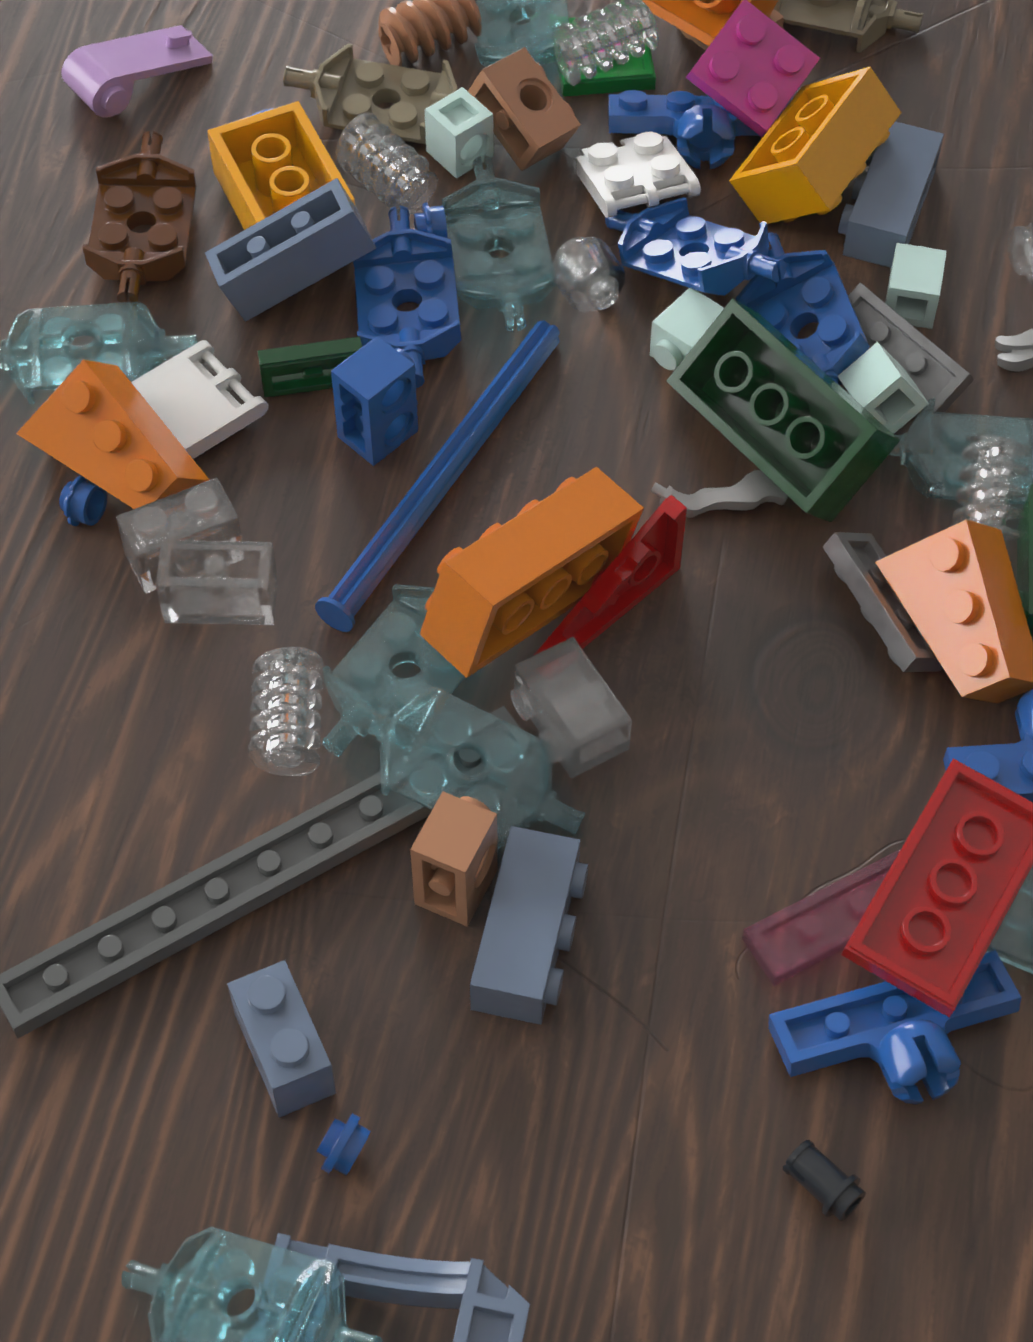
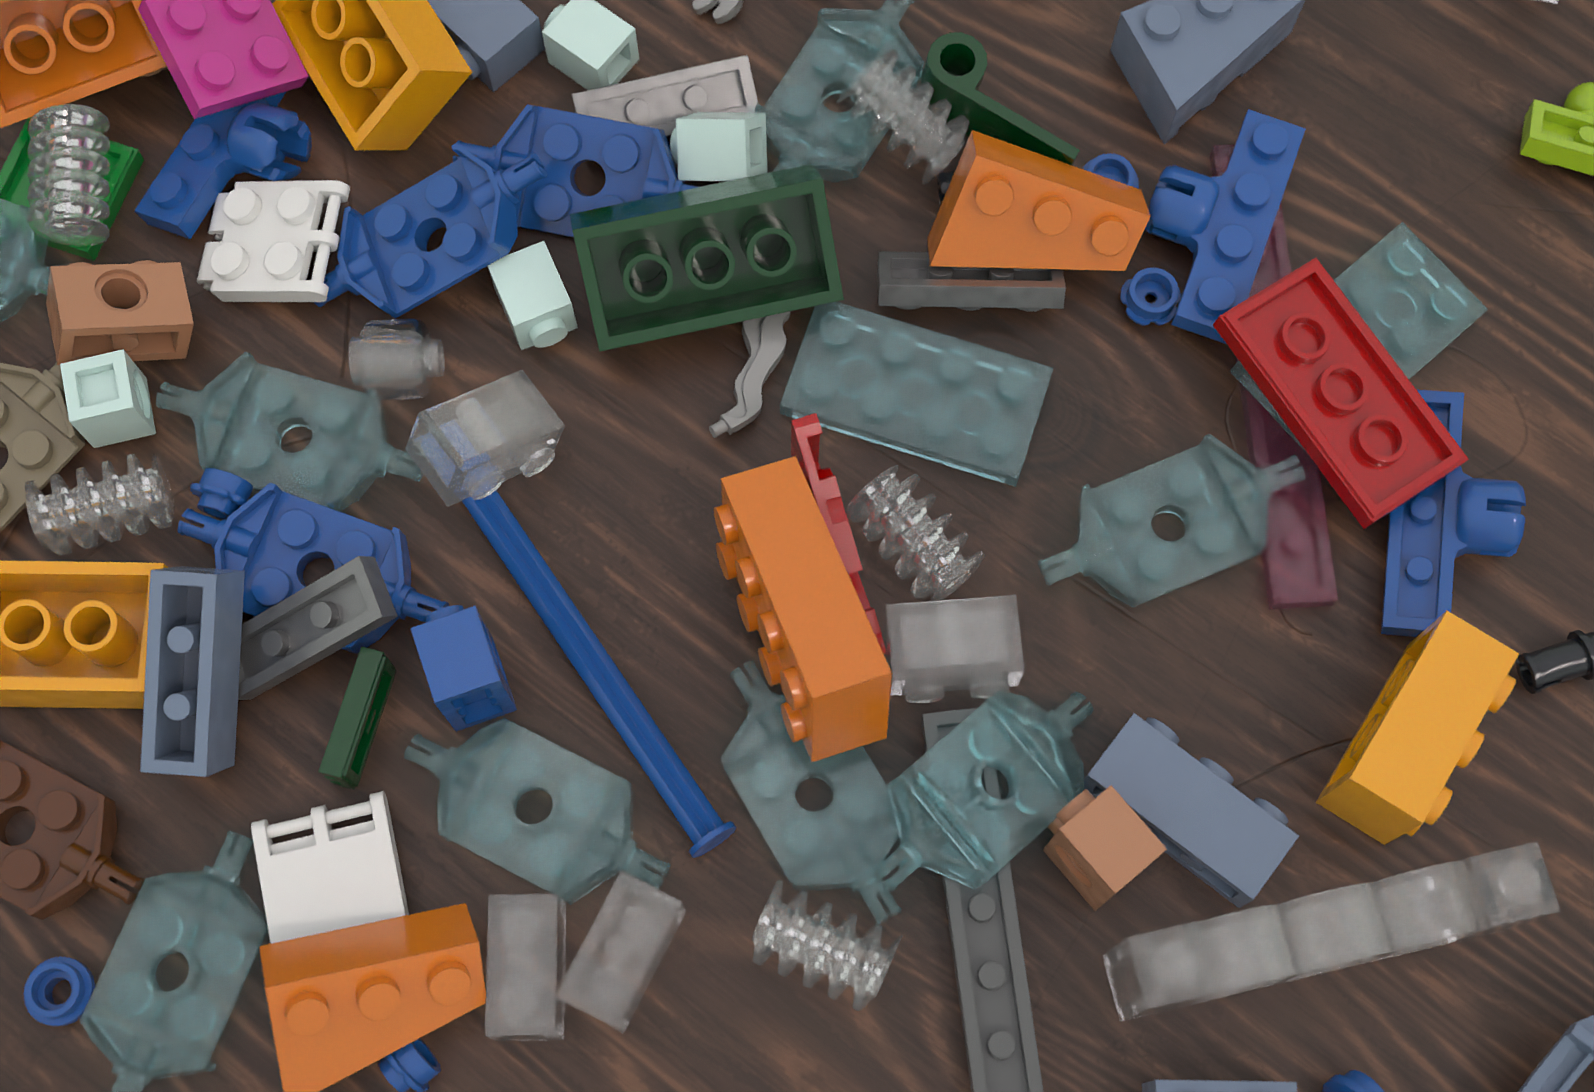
camera: 65 degrees left, 15 degrees up
(42, 290) = (40, 987): none -> blue plate
(307, 531) = (568, 852): none -> clear light blue plate
(359, 303) = (312, 625): none -> flat silver plate
(468, 1044) = (1329, 931): none -> clear fence
(557, 343) = (485, 438): none -> clear brick
(647, 641) = (913, 535): none -> clear piece
(684, 1057) = (1420, 730): none -> light orange brick
(741, 787) = (1207, 487): none -> clear light blue plate
(774, 612) = (917, 391): none -> clear light blue plate
(958, 725) = (1156, 283): none -> blue plate

